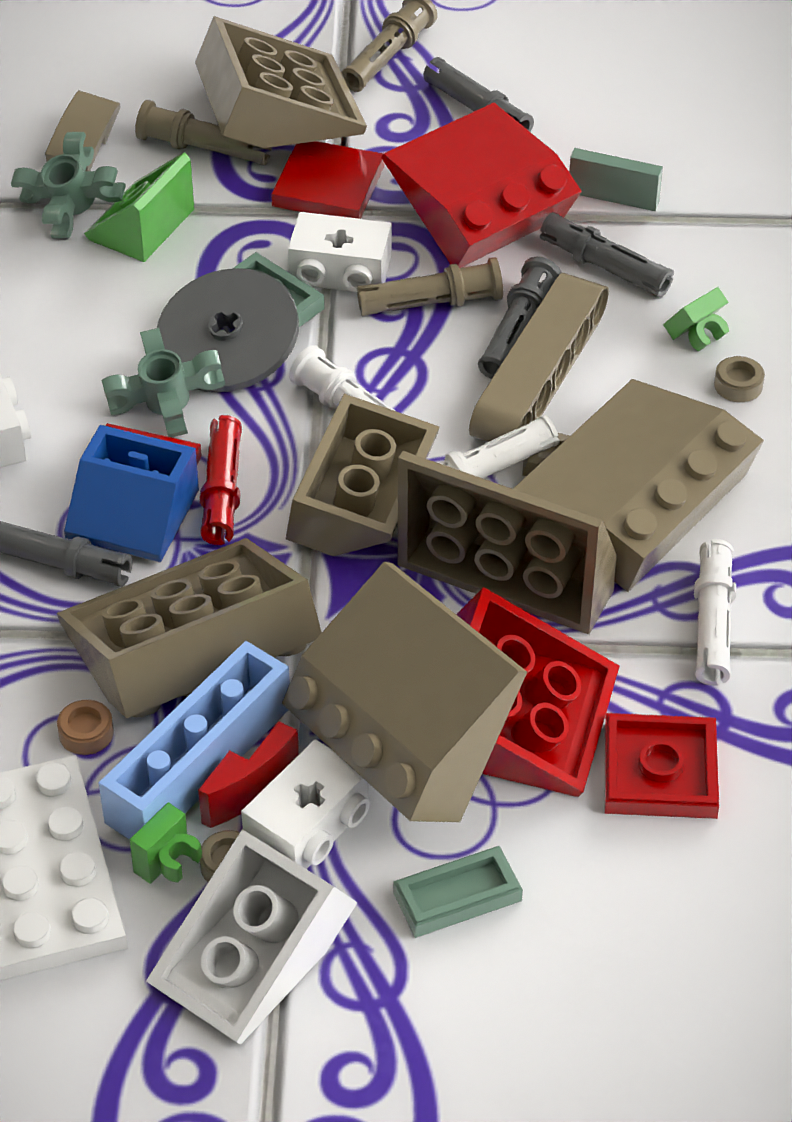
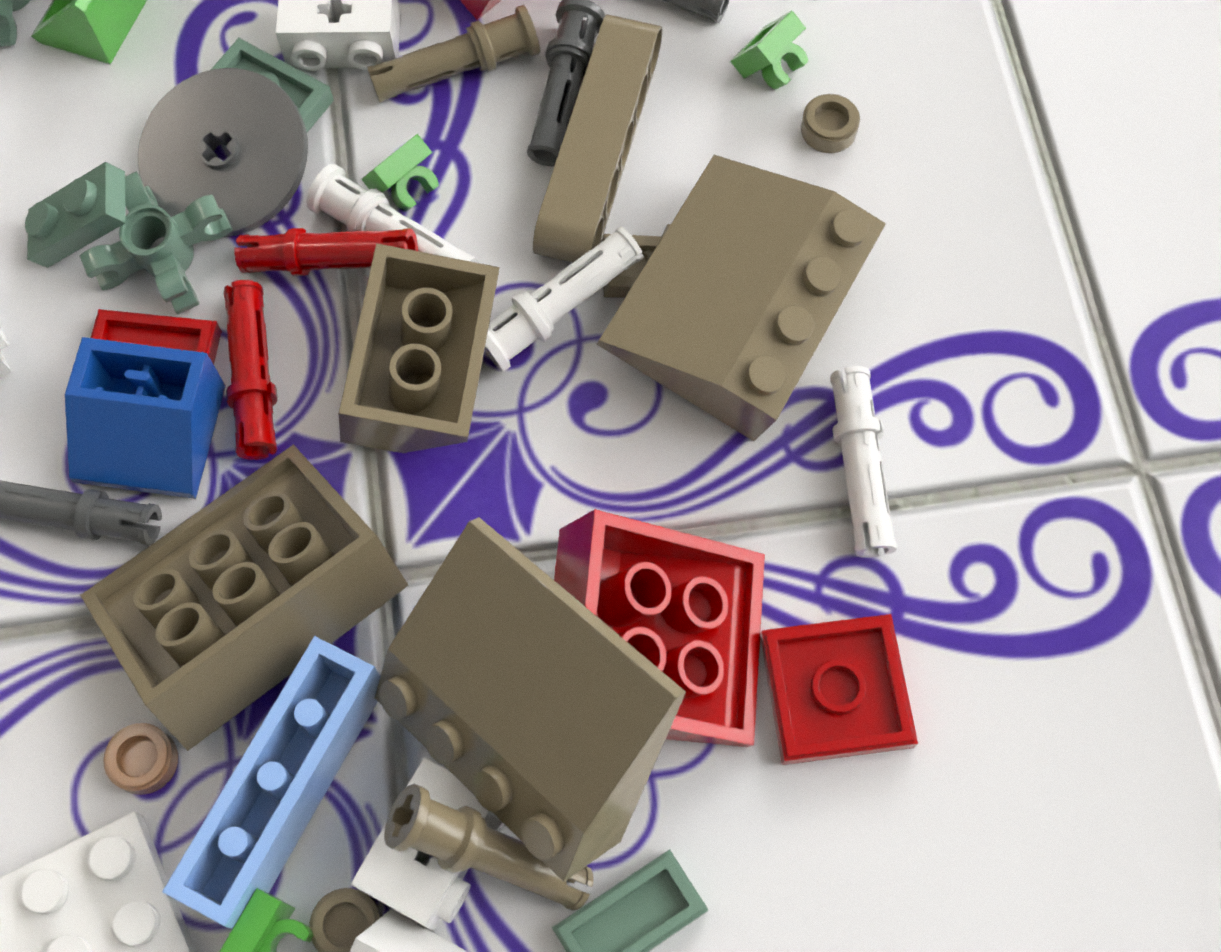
camera: 10 degrees left, 20 degrees up
(103, 353) = (76, 215): none -> sand green plate
(240, 780) = (338, 824): red slope -> none
(283, 404) = (303, 251): none -> red pin
(337, 787) = (464, 842): none -> dark tan pin
(373, 357) = (400, 168): none -> tile
(503, 540) = (601, 429): dark tan slope -> none

